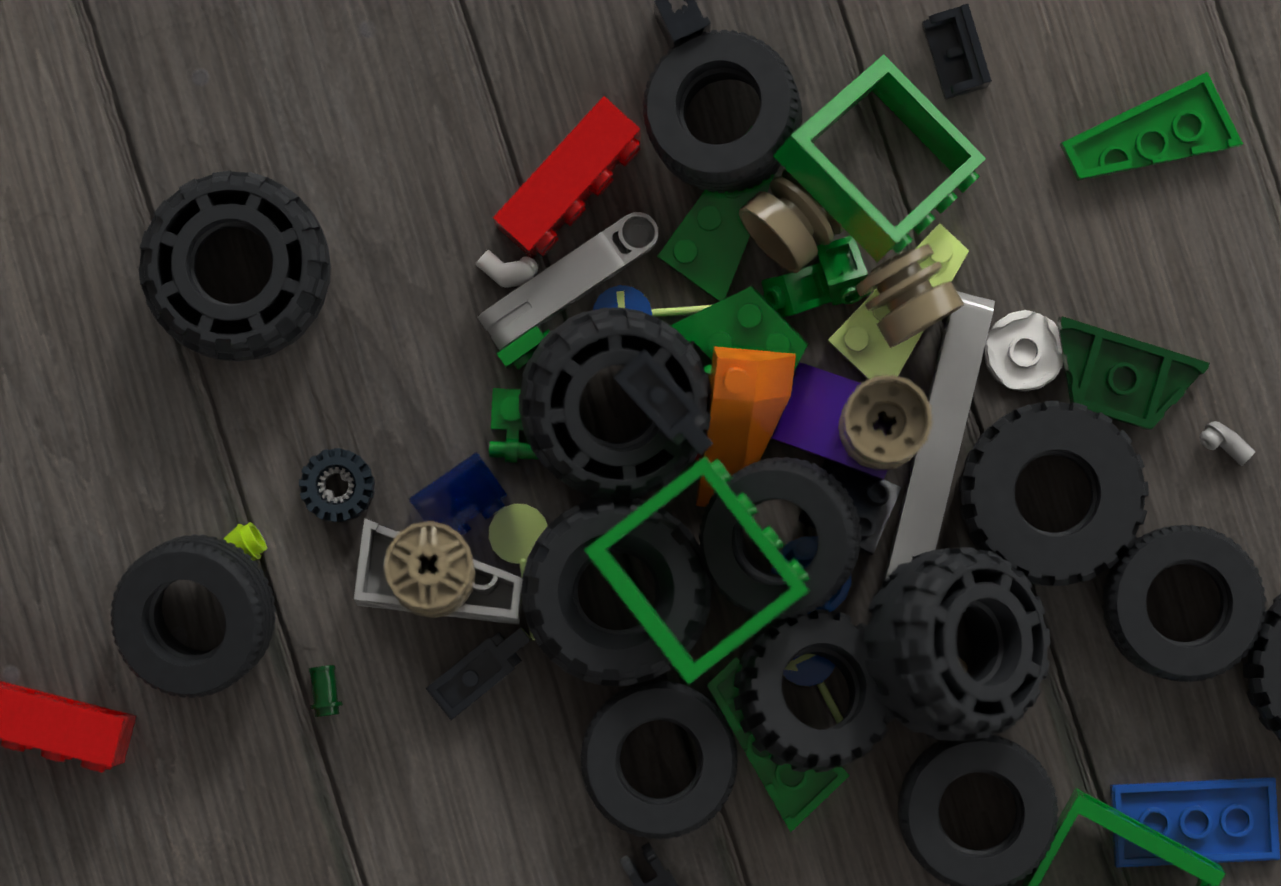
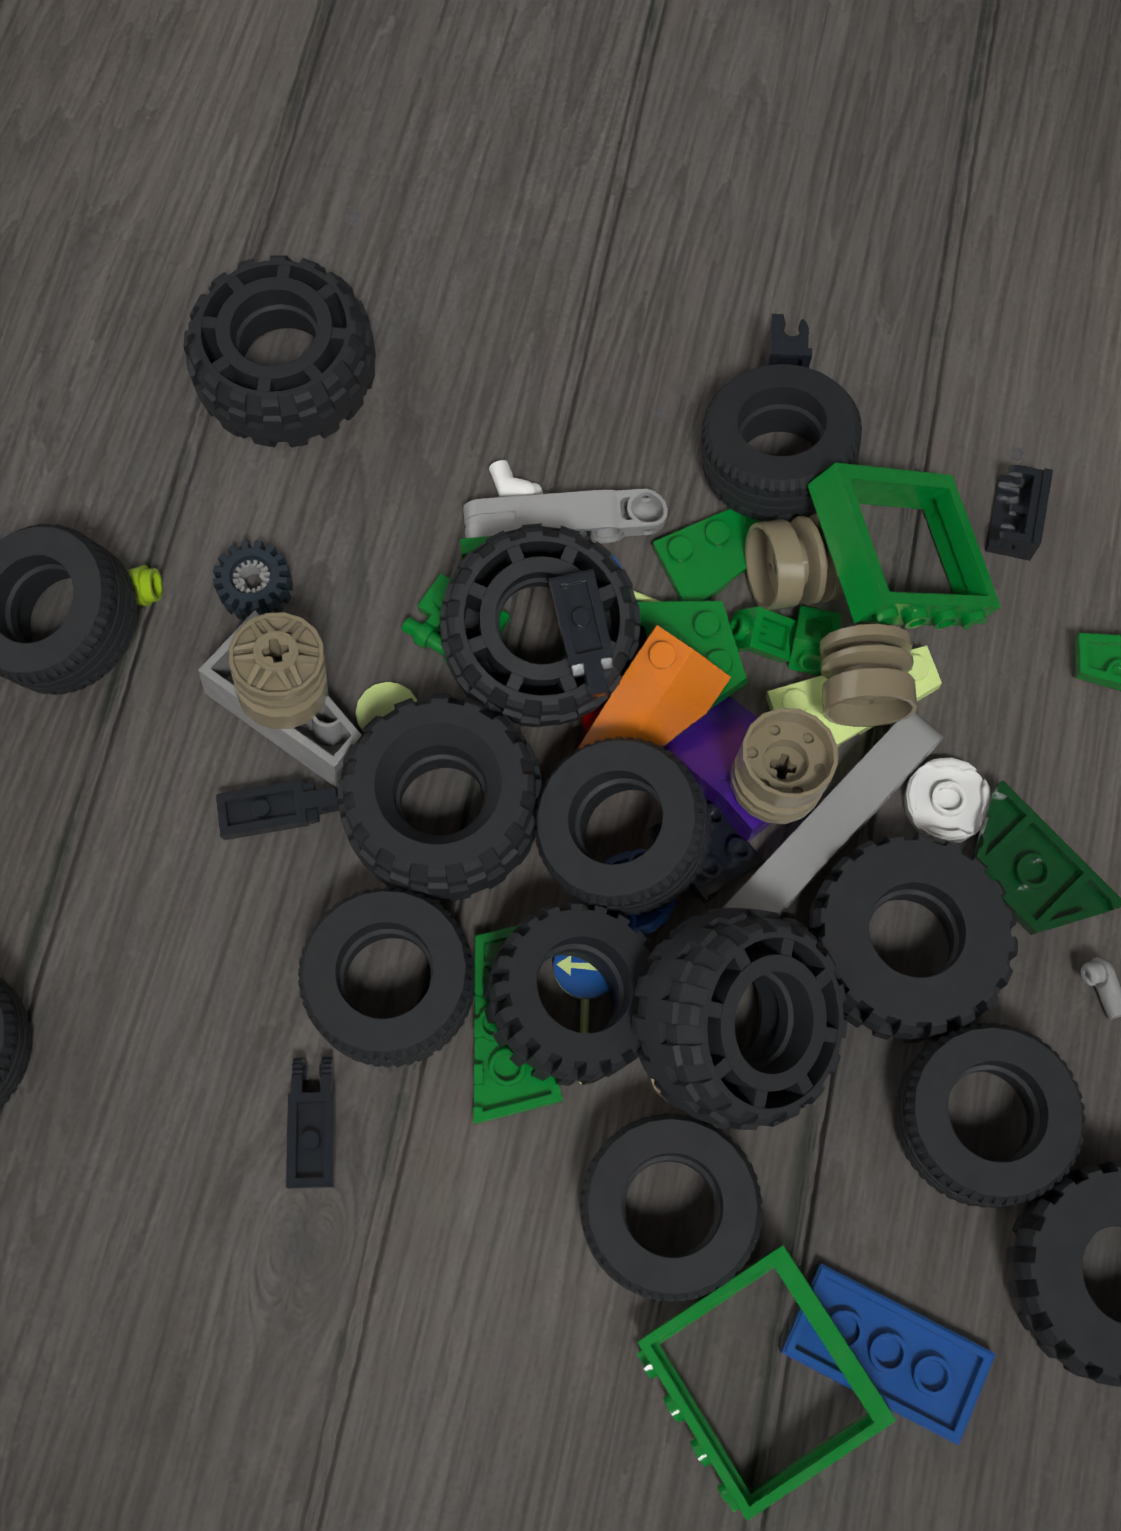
camera: 30 degrees right, 15 degrees down
(324, 691) = (126, 750): dark green pin -> none
(461, 495) = (356, 638): clear blue slope -> none
(568, 177) = (611, 429): red brick -> none
(646, 614) = (537, 879): green window -> none

